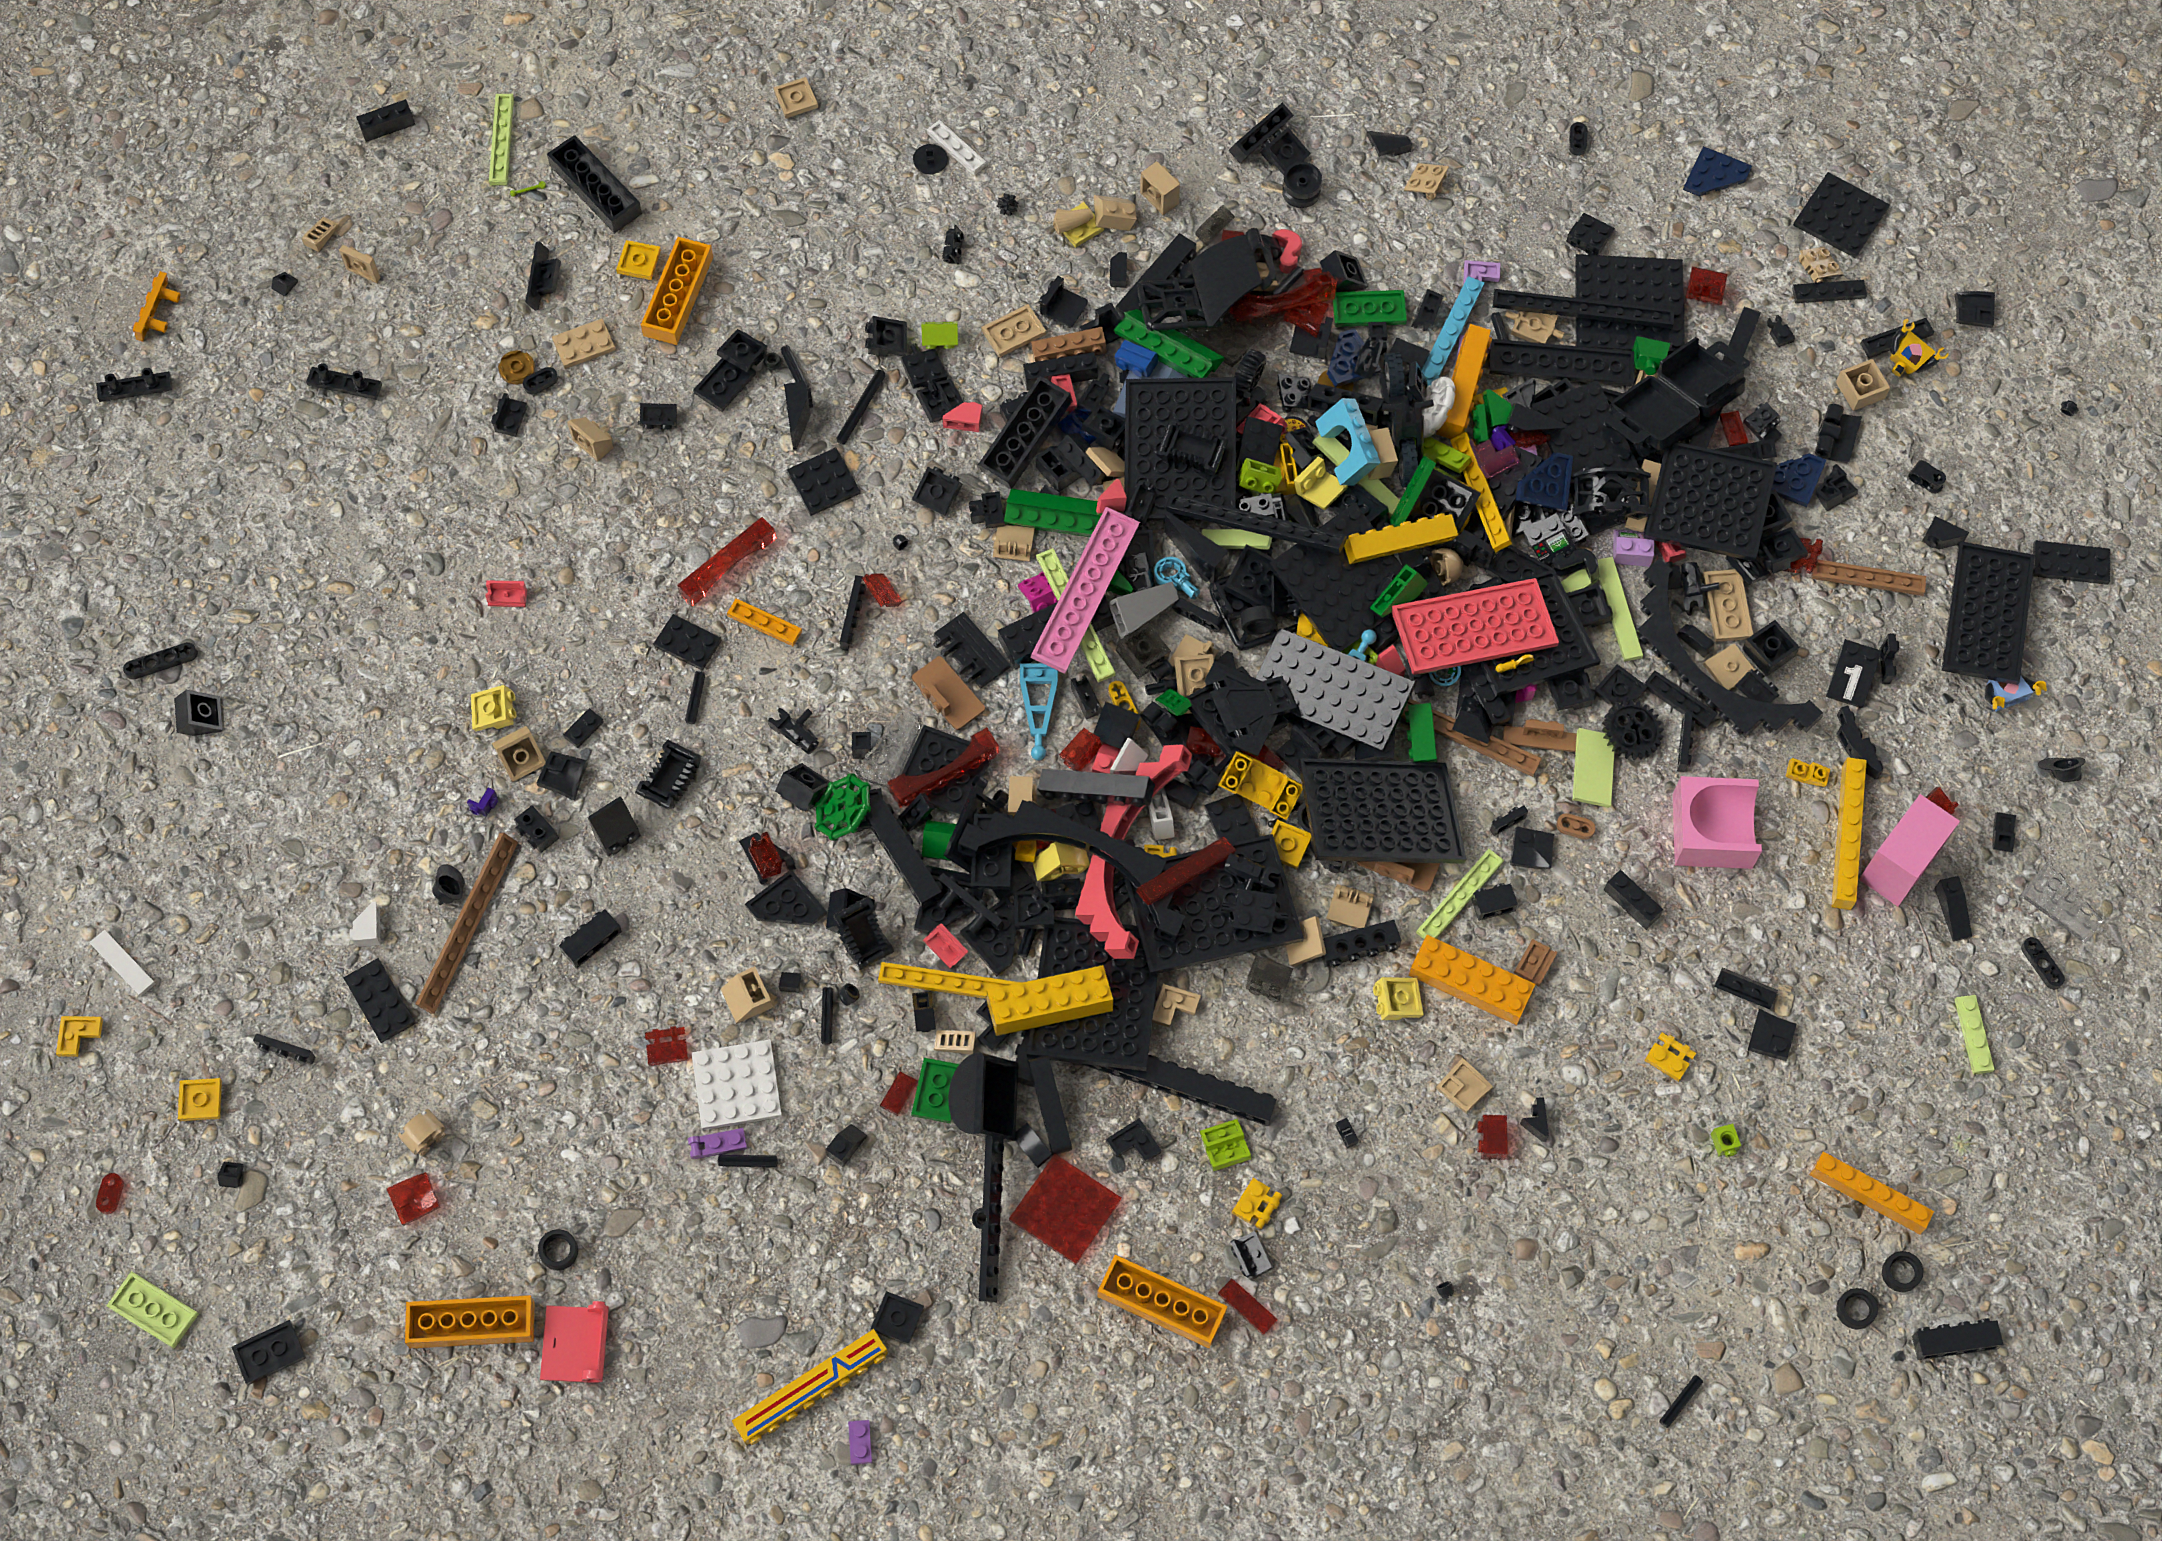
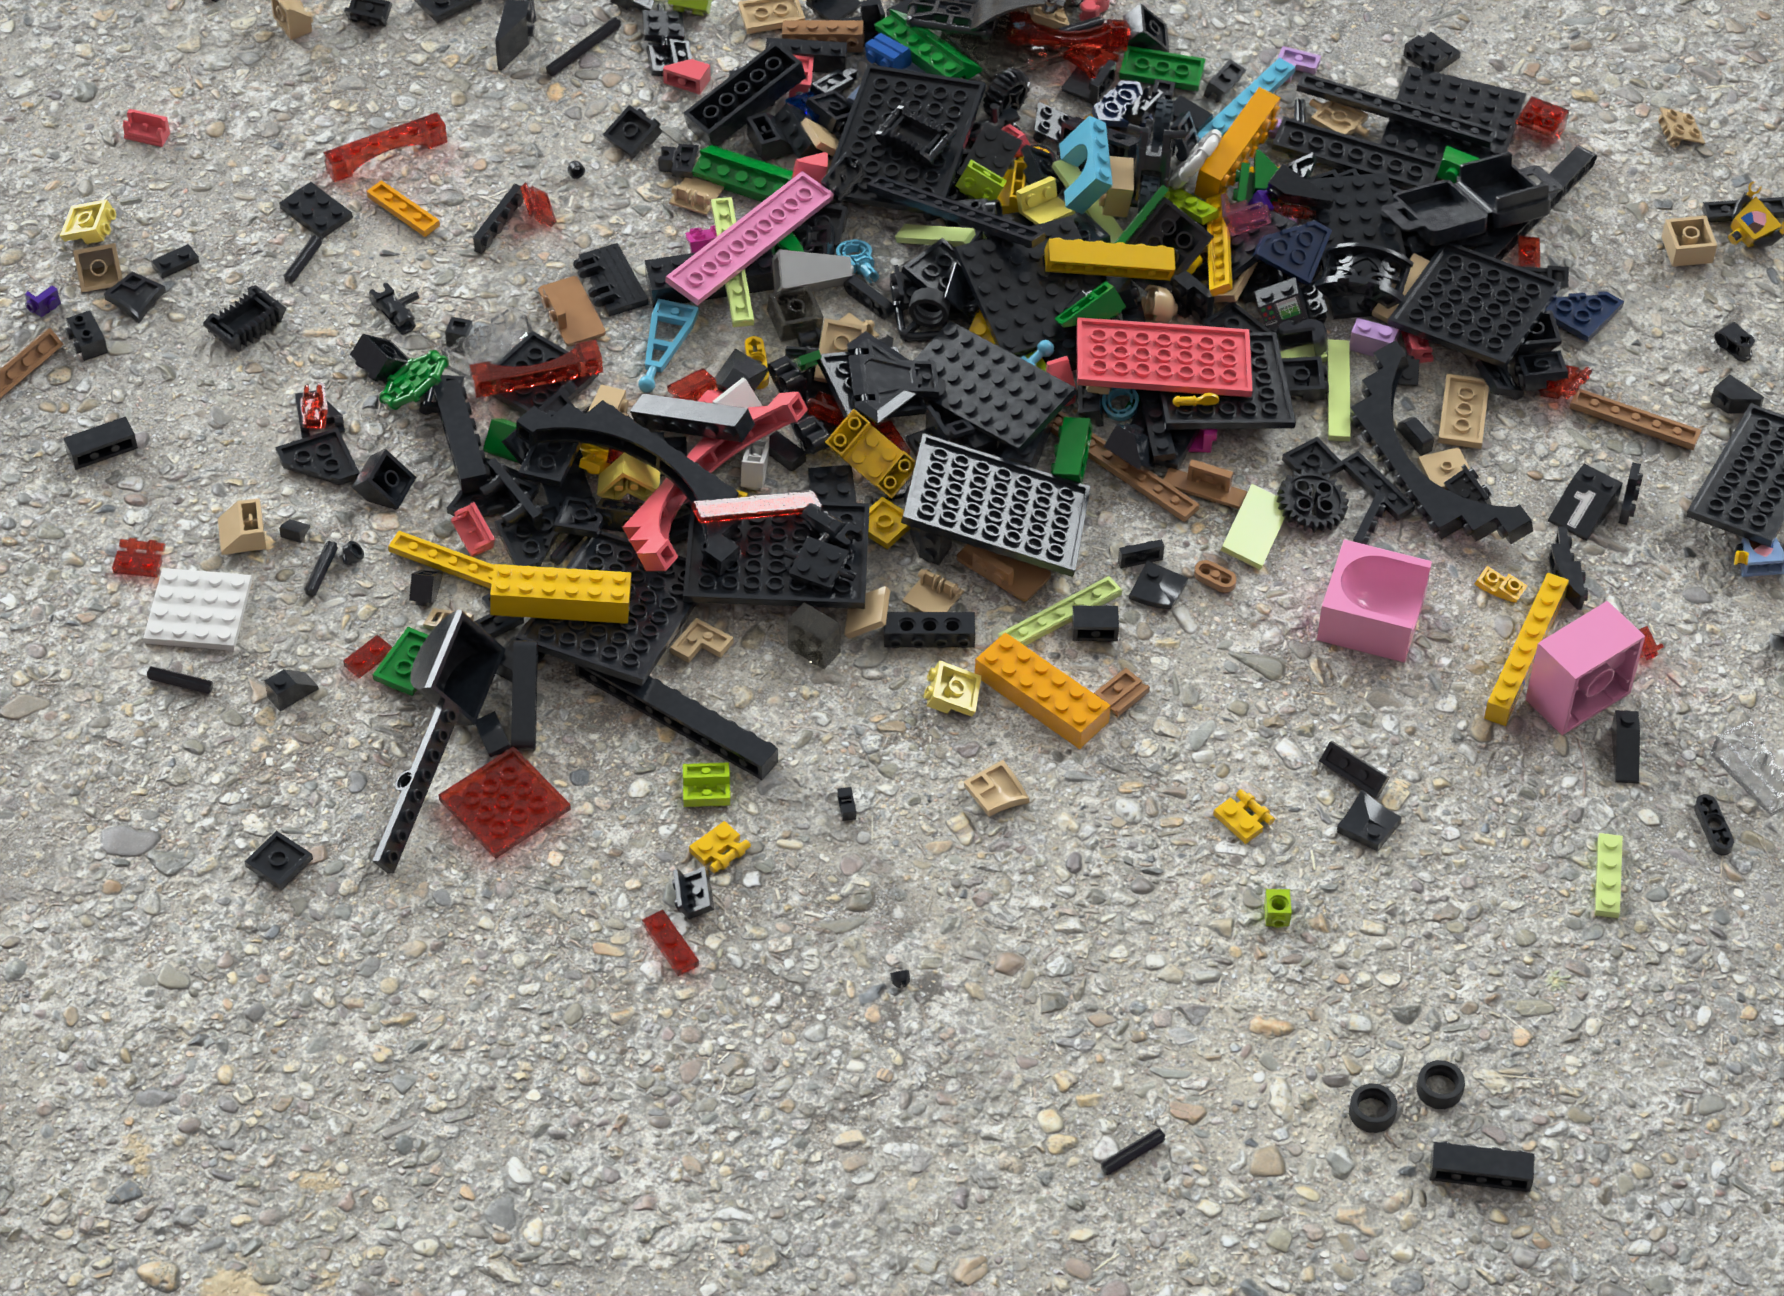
camera: 15 degrees right, 15 degrees down
(614, 826) = (165, 342): black slope -> none
(717, 1143) = (157, 656): medium lavender plate -> none
(810, 1387) = (156, 901): yellow brick -> none
(823, 481) = (517, 102): black plate -> none
(860, 1442) = (189, 968): medium lavender plate -> none
(862, 933) = (386, 494): black piece -> none
(917, 812) = (493, 406): black slope -> none
(1086, 697) = (717, 344): black hinge -> none
(1134, 1136) = (607, 752): black plate -> none
(1162, 1301) = (575, 909): light orange brick -> none
(1202, 553) = (891, 236): black slope -> none
(1493, 1137) = (1010, 843): clear red brick -> none
(1538, 1124) = (1065, 841): black slope -> none
(1572, 691) = (1256, 448): black plate -> none
(1633, 899) = (1254, 656): black brick -> none
(1694, 587) = (1430, 386): black piece -> none
(1715, 172) = (1591, 25): dark blue plate -> none
(1762, 418) = (1563, 244): black tile -> none
(1770, 648) = (1497, 457): black brick -> none
(1780, 333) = (1613, 181): black plate -> none
(1829, 291) = (1683, 155): black plate -> none
(1835, 489) = (1626, 332): black slope -> none
(1837, 434) = (1645, 282): black panel -> none
(1841, 215) = (1721, 90): black plate -> none
(1871, 1193) = (1430, 997): light orange brick -> none
(2003, 832) = (1711, 689): black slope -> none

